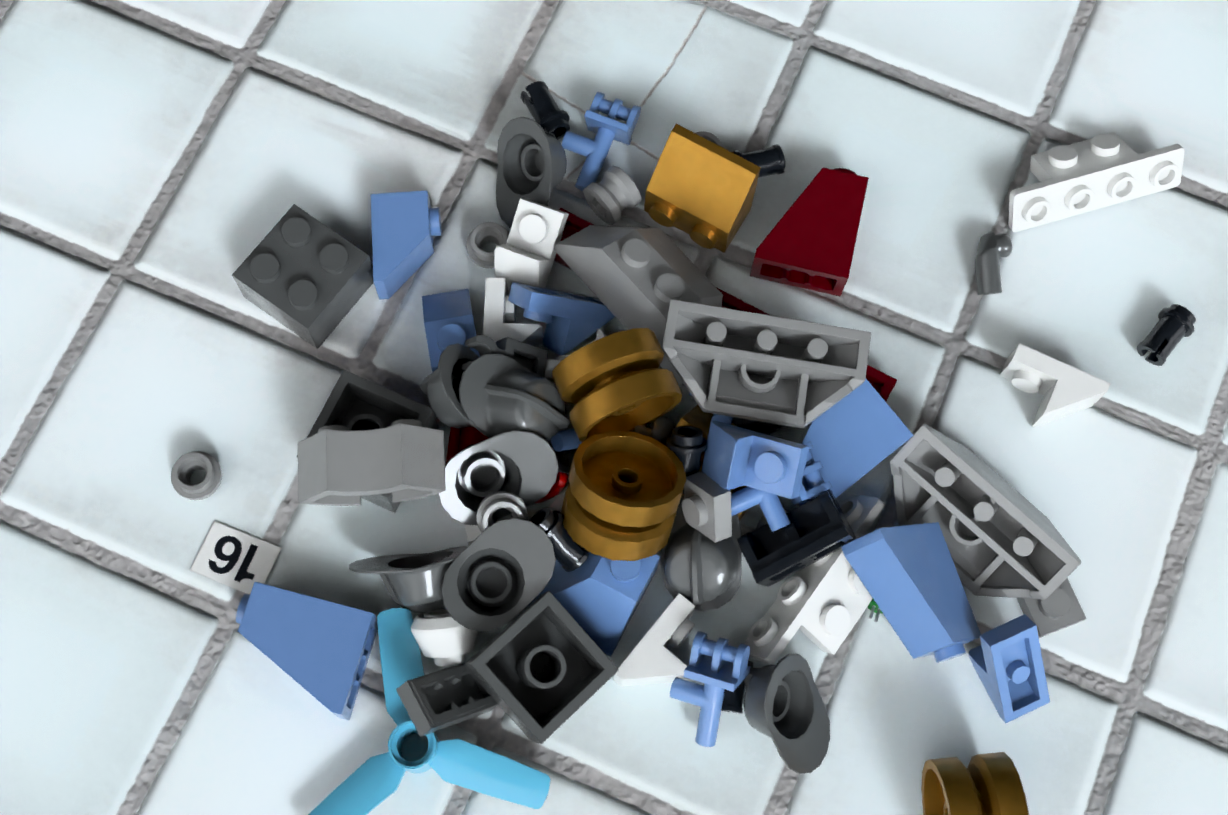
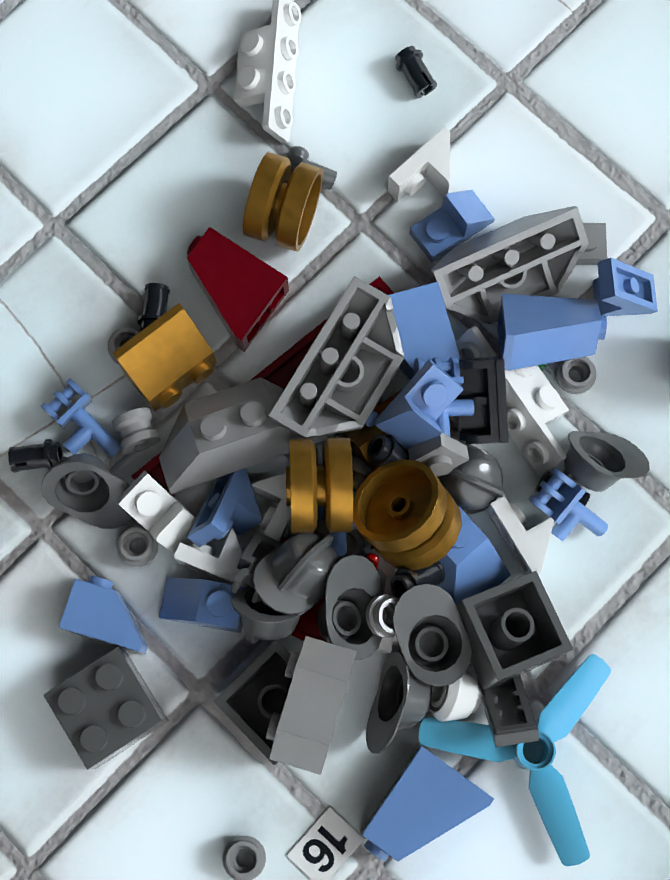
camera: 65 degrees left, 5 degrees up
(866, 655) = (580, 364): none -> light grey plate
(933, 240) = (282, 201): none -> pearl gold wheel
(1007, 446) = (452, 224): none -> medium blue slope

